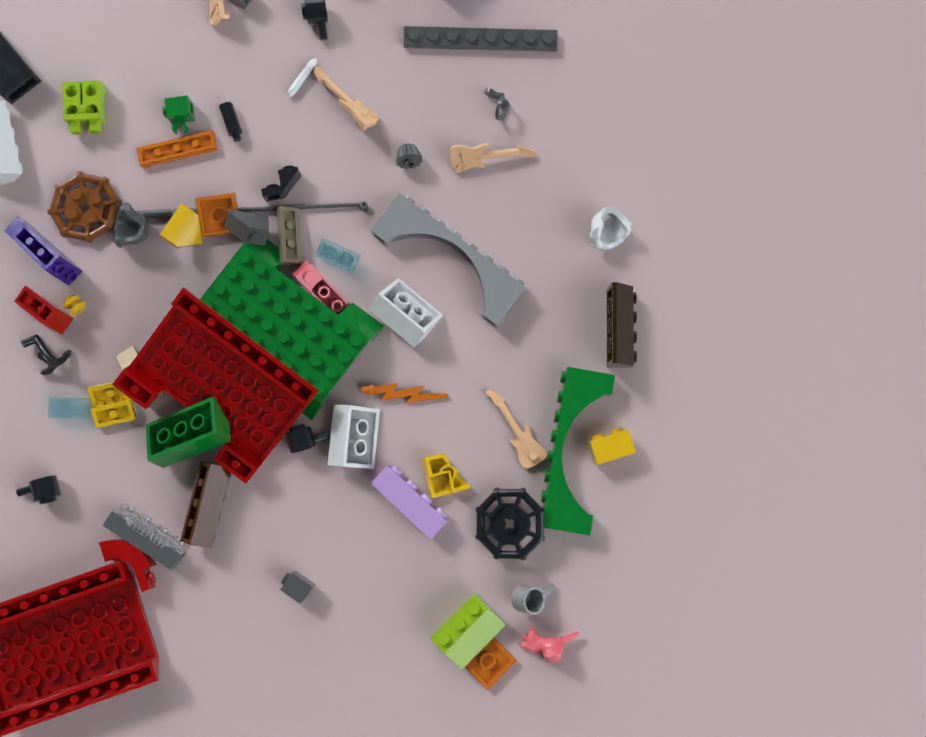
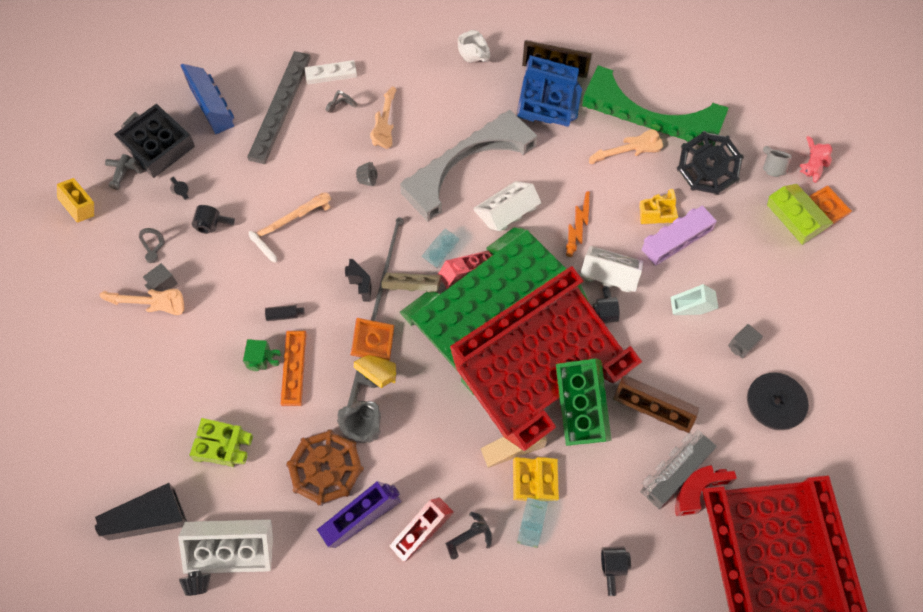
camera: 75 degrees left, 20 degrees down
(74, 304) = (425, 494): yellow wheel -> none
(244, 642) = (779, 416): none -> black piece
(248, 226) = (394, 310): dark grey slope -> none
(331, 529) = (695, 301): none -> light aqua slope
(540, 79) = (330, 72): none -> white plate
(562, 328) = (549, 92): none -> blue slope
(611, 446) = (655, 83): yellow brick -> none

